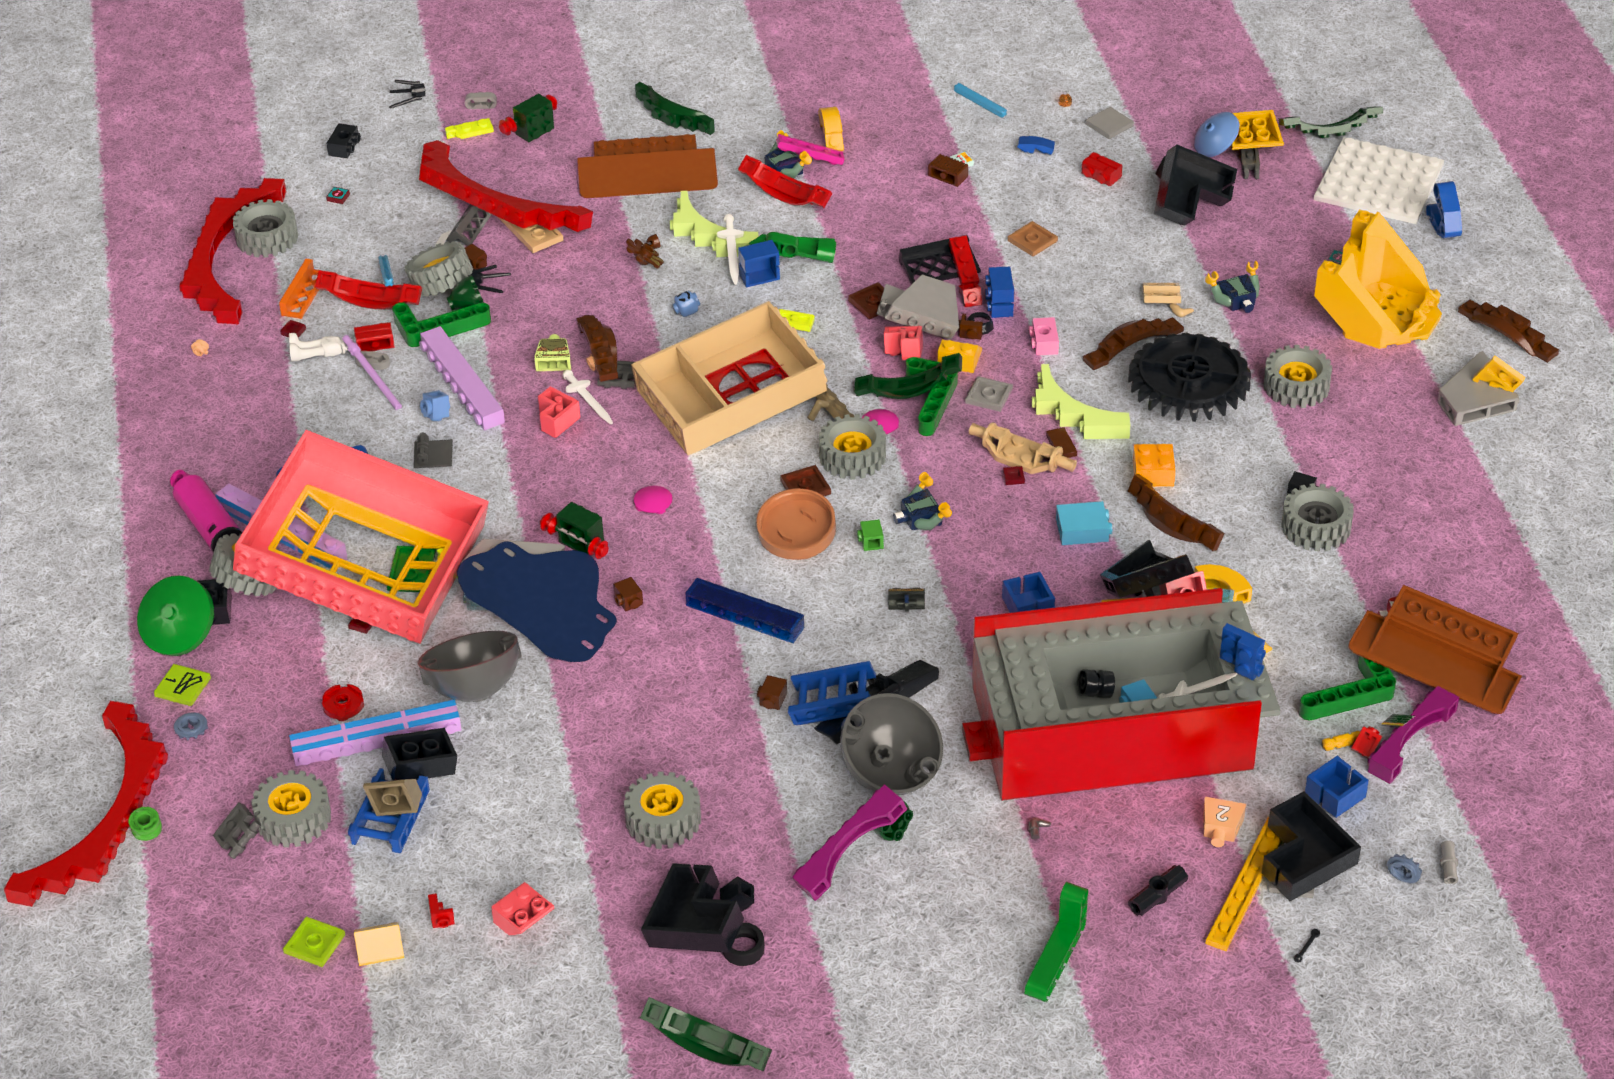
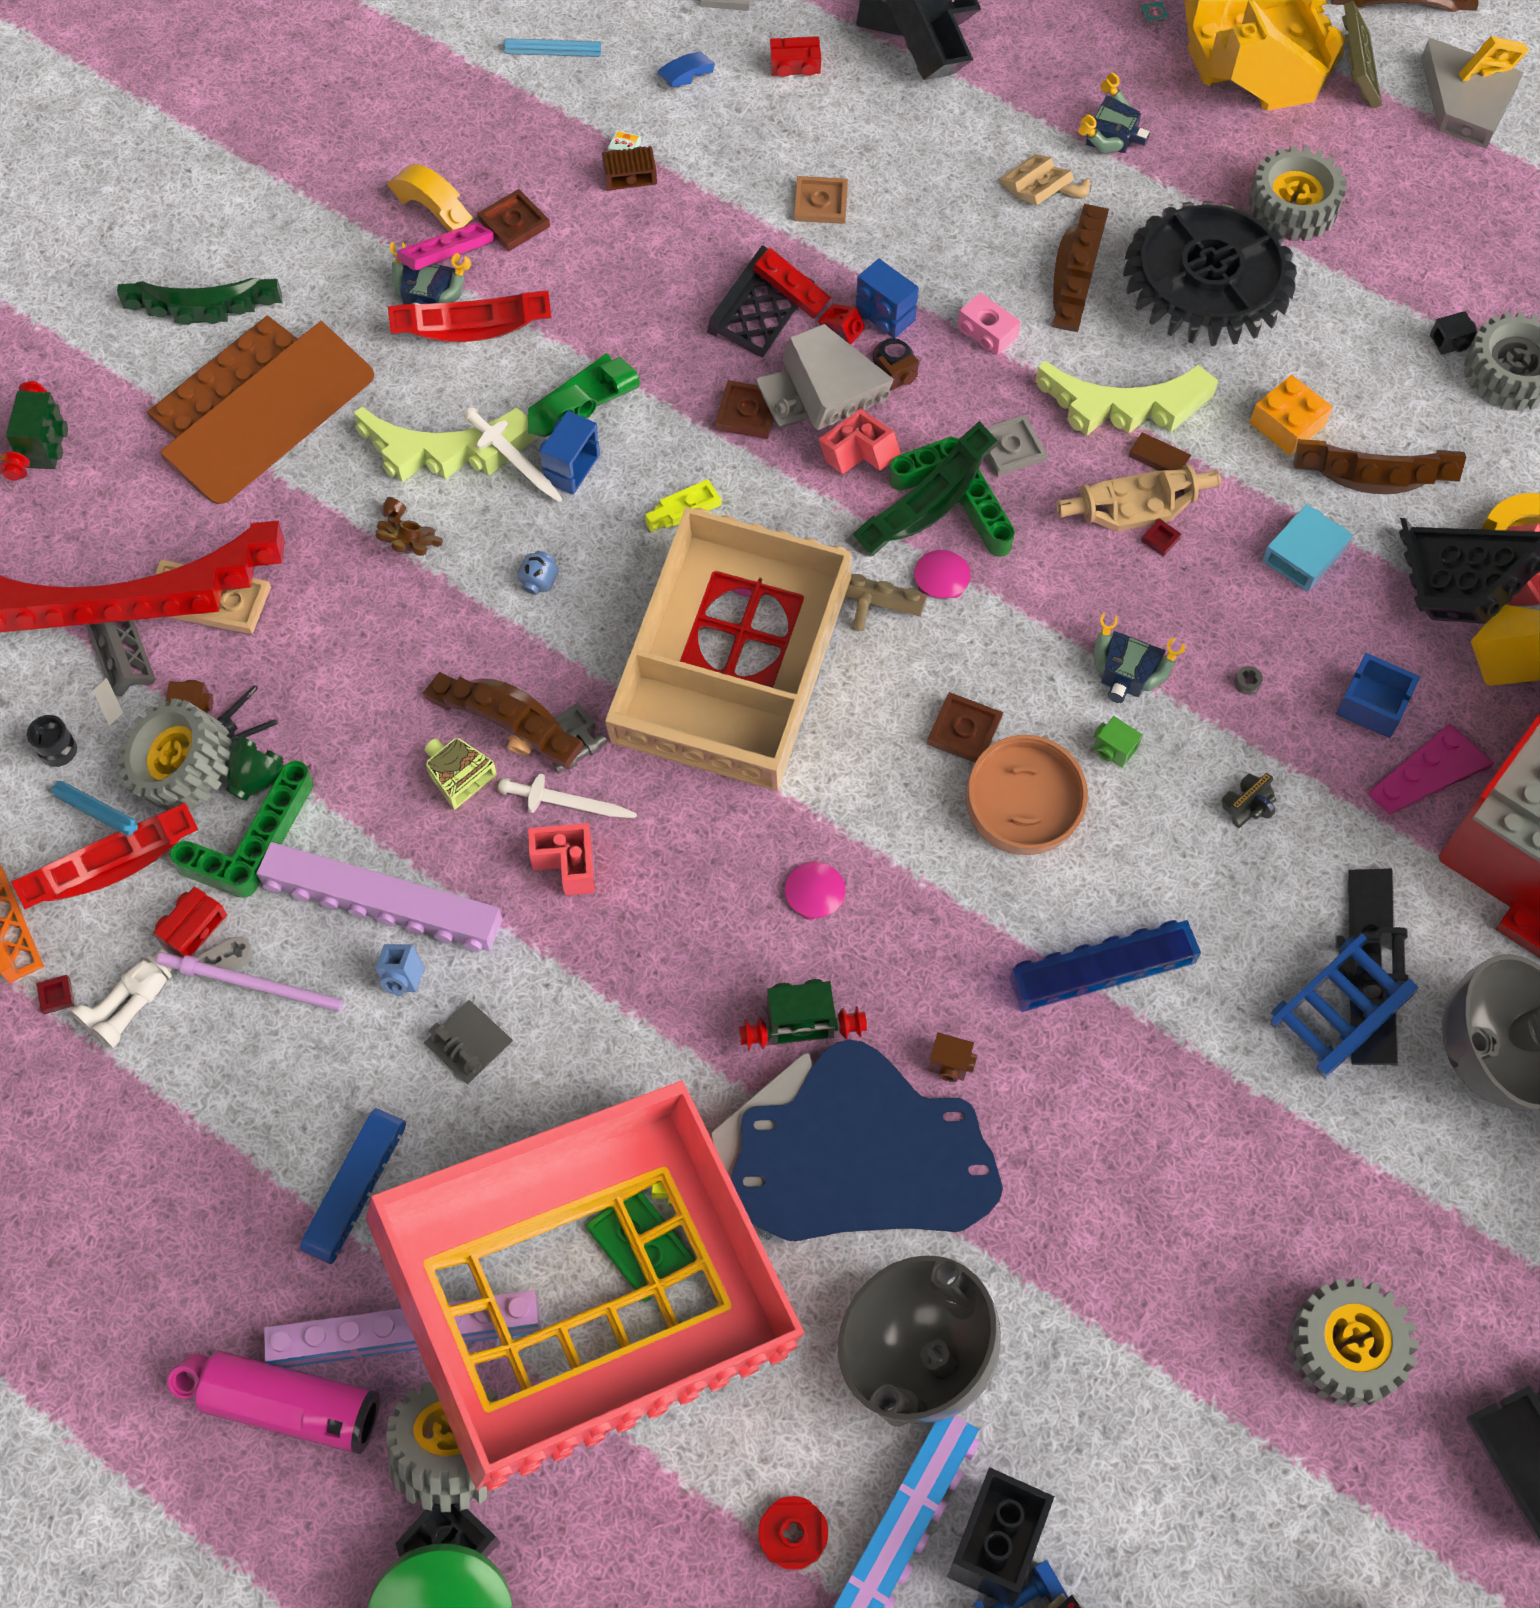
camera: 45 degrees left, 20 degrees up
(399, 237) = (51, 740): none -> black wheel
(772, 692) = (1266, 1058): reddish brown brick -> none
(852, 436) = (965, 615): light grey wheel -> none
(862, 160) = (513, 219): none -> copper plate
(969, 352) = (927, 416): yellow slope -> none
(975, 552) = (1242, 674): none -> dark grey bush
(1429, 337) = (1361, 55): none -> olive plate

